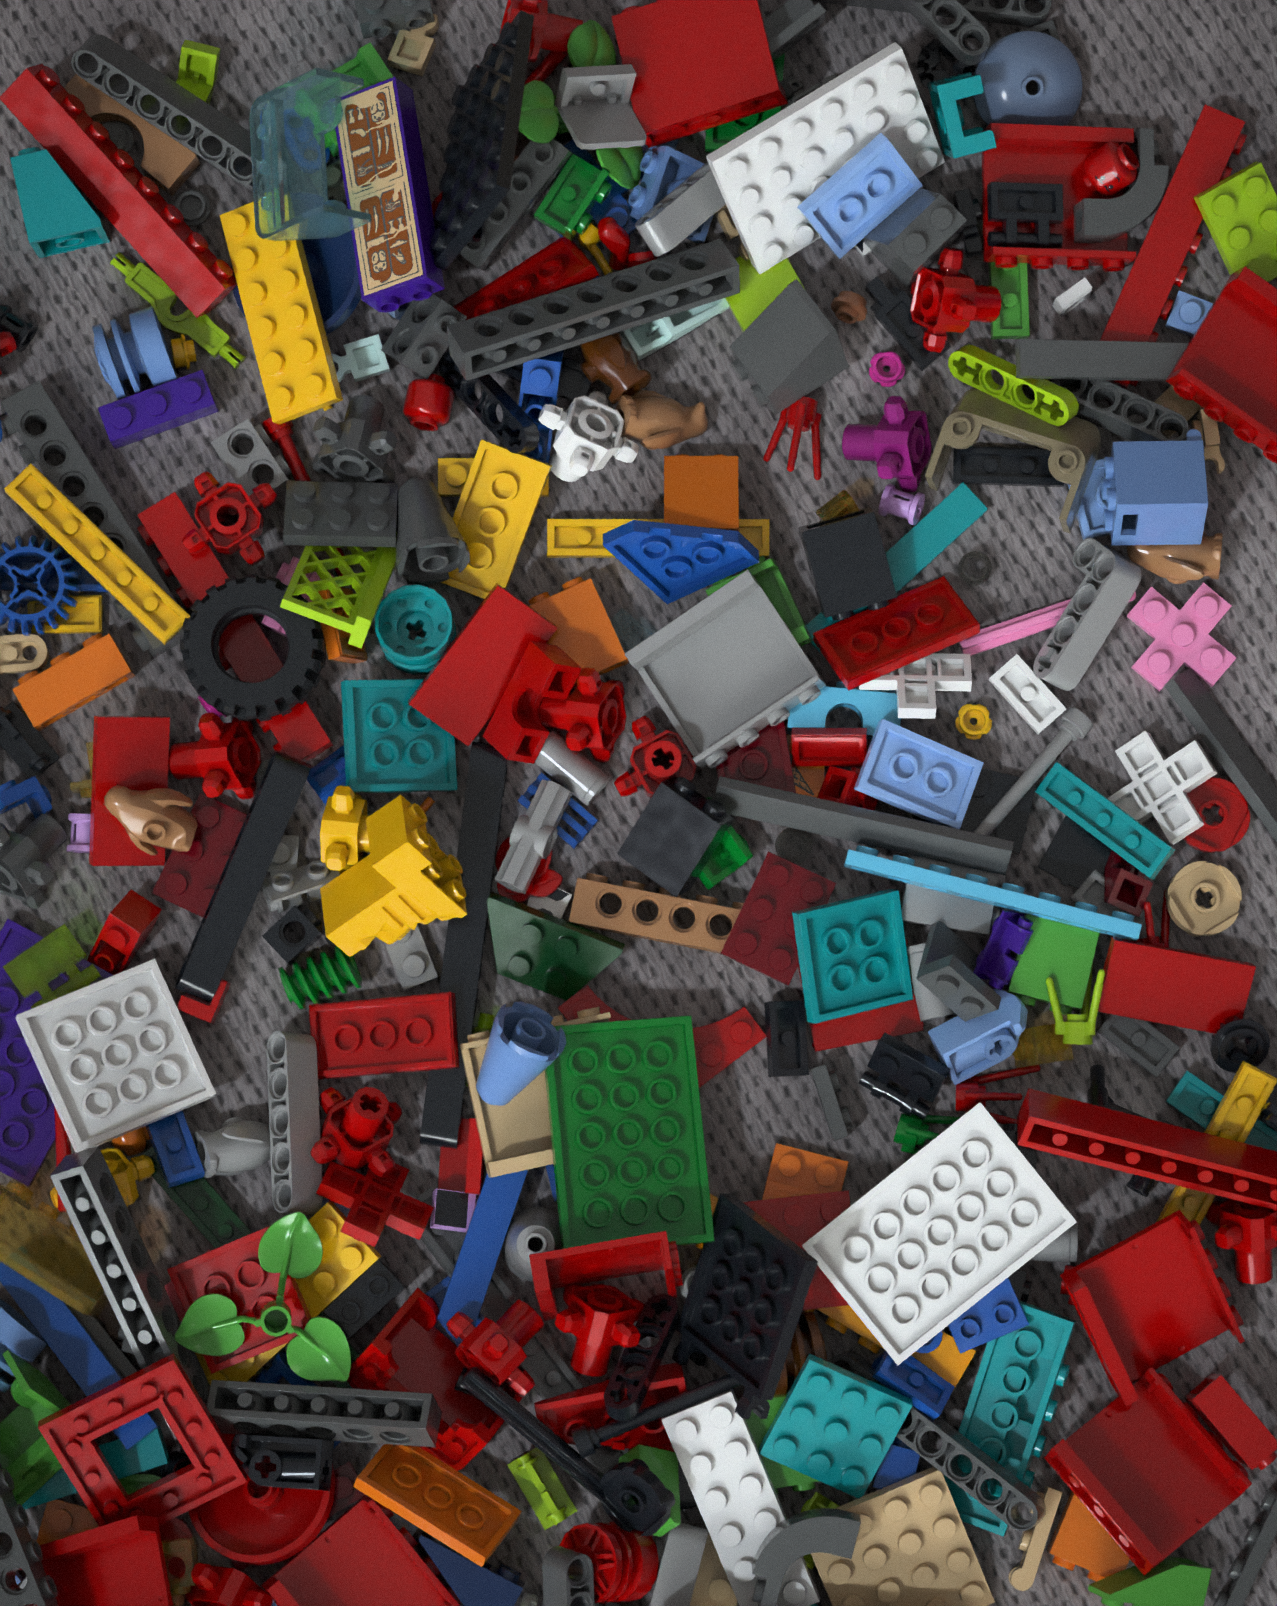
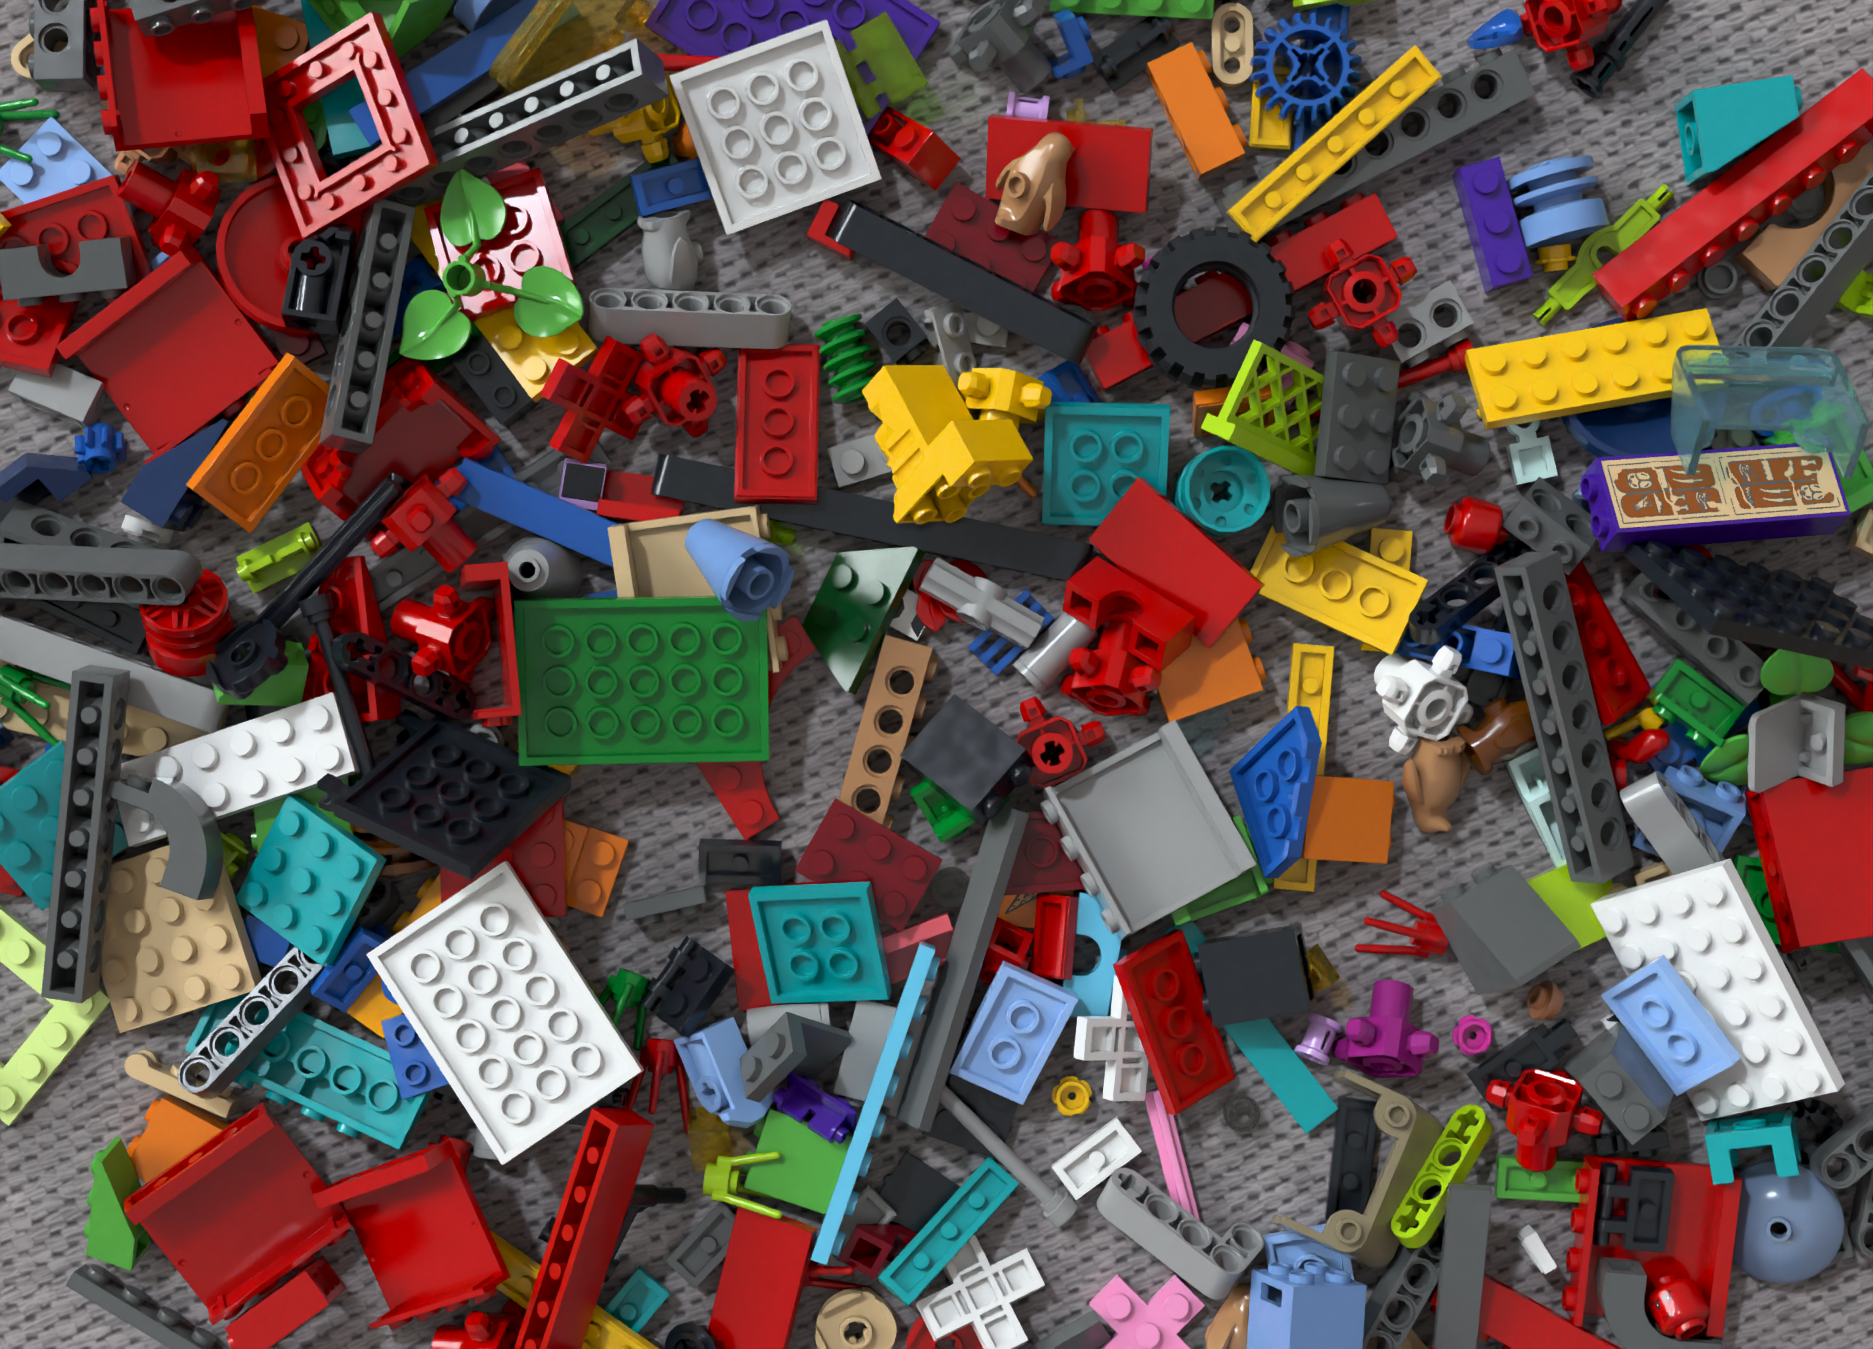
camera: 85 degrees right, 5 degrees up
(848, 882) = (902, 946): none -> coral panel

